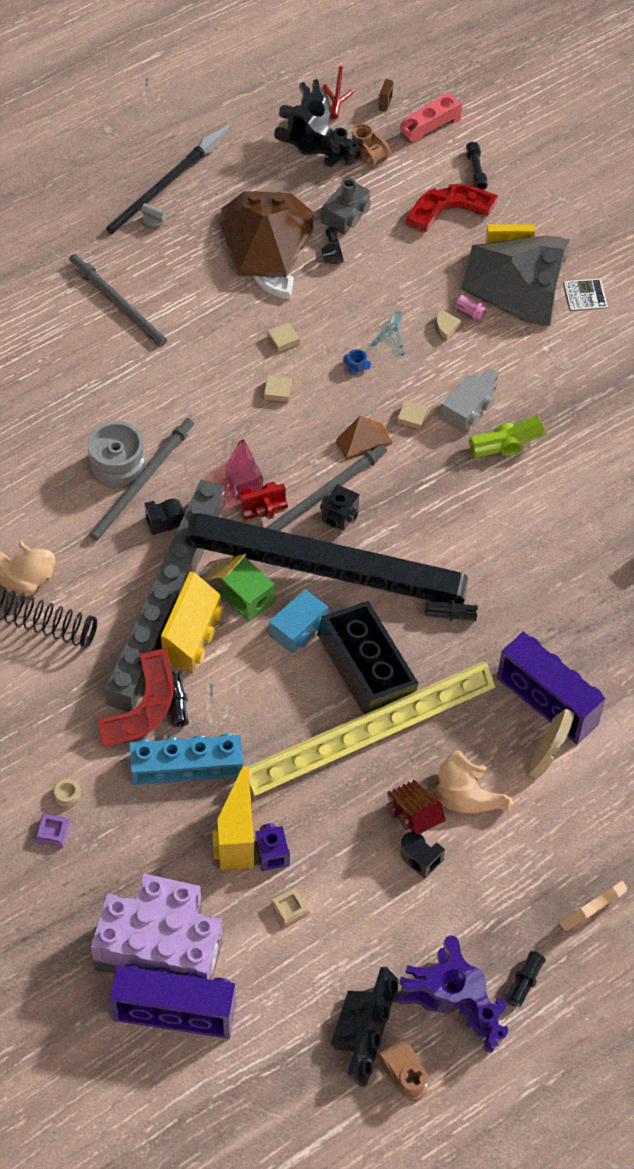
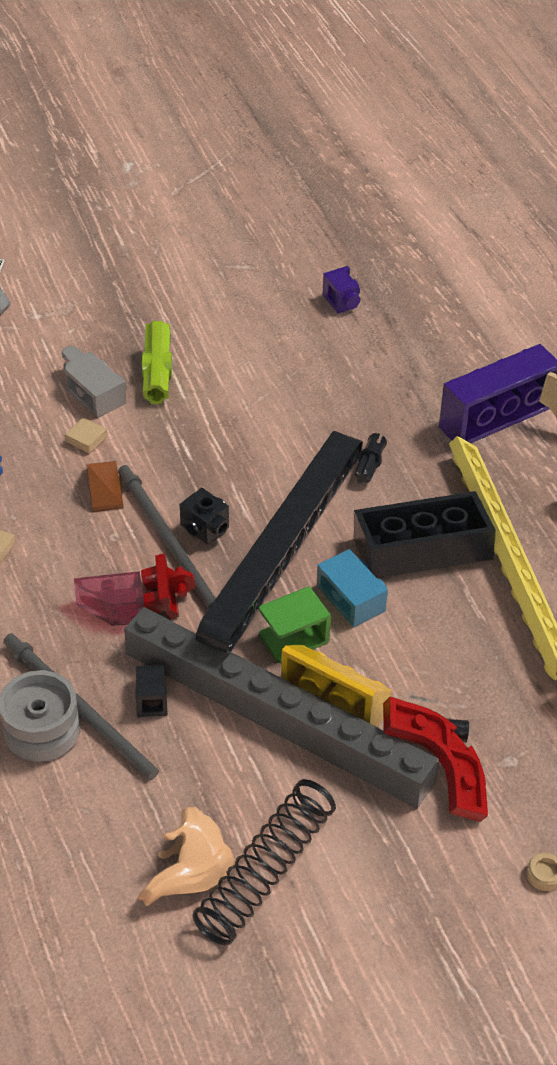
camera: 75 degrees left, 10 degrees down
(186, 759) = (524, 733): dark azure brick -> none
(219, 568) = (268, 632): yellow sticker -> none

